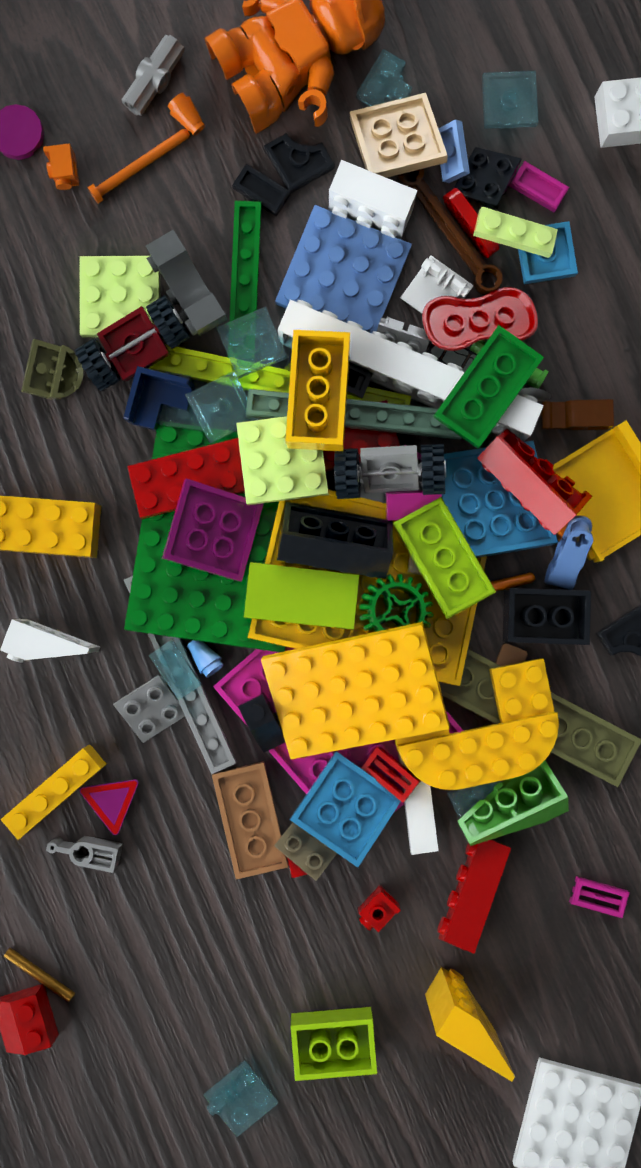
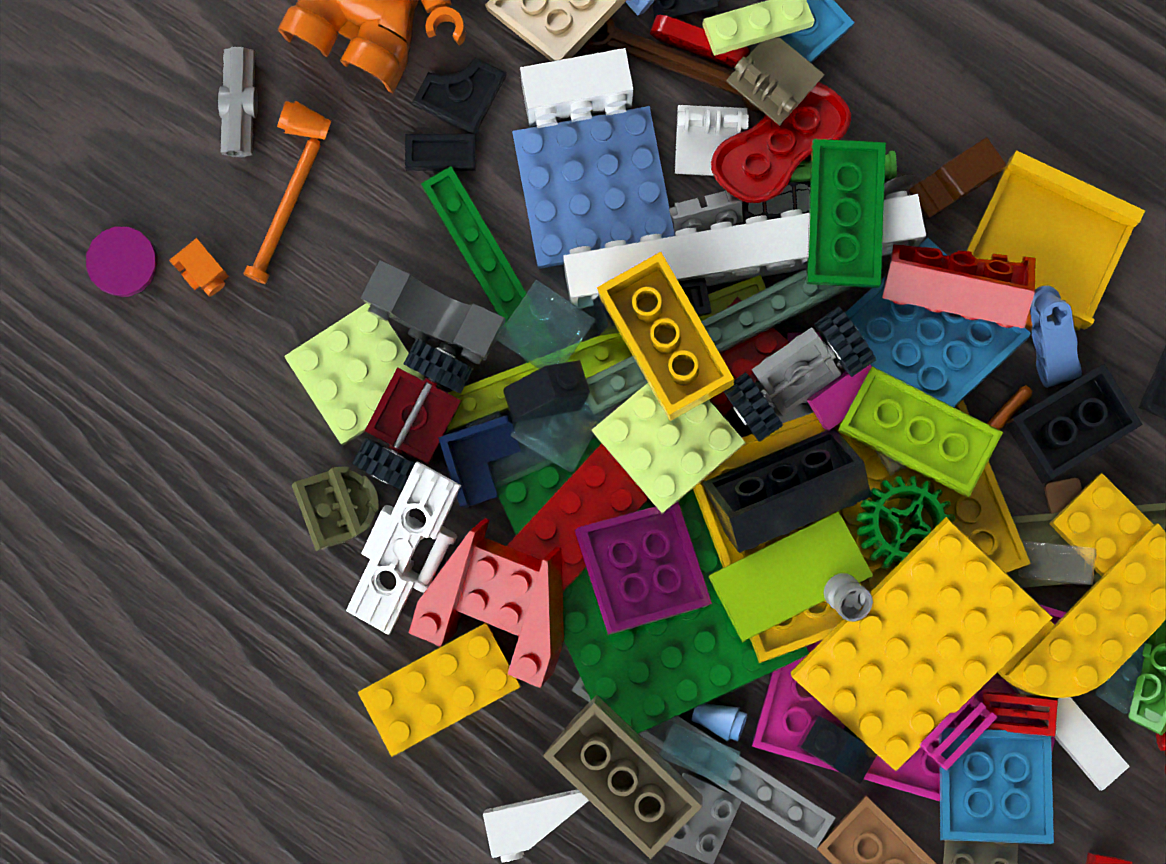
camera: 30 degrees left, 5 degrees down
(71, 416) = (394, 543): none -> white piece
(114, 653) = (624, 777): none -> dark tan slope
(116, 489) = (501, 590): none -> wedge
(224, 381) = (548, 392): none -> black slope
(321, 765) = (979, 709): none -> dark pink tile
(327, 632) = (847, 597): none -> light grey wheel
(478, 697) = (1059, 563): none -> clear tile
(502, 275) = (775, 78): none -> dark tan hinge

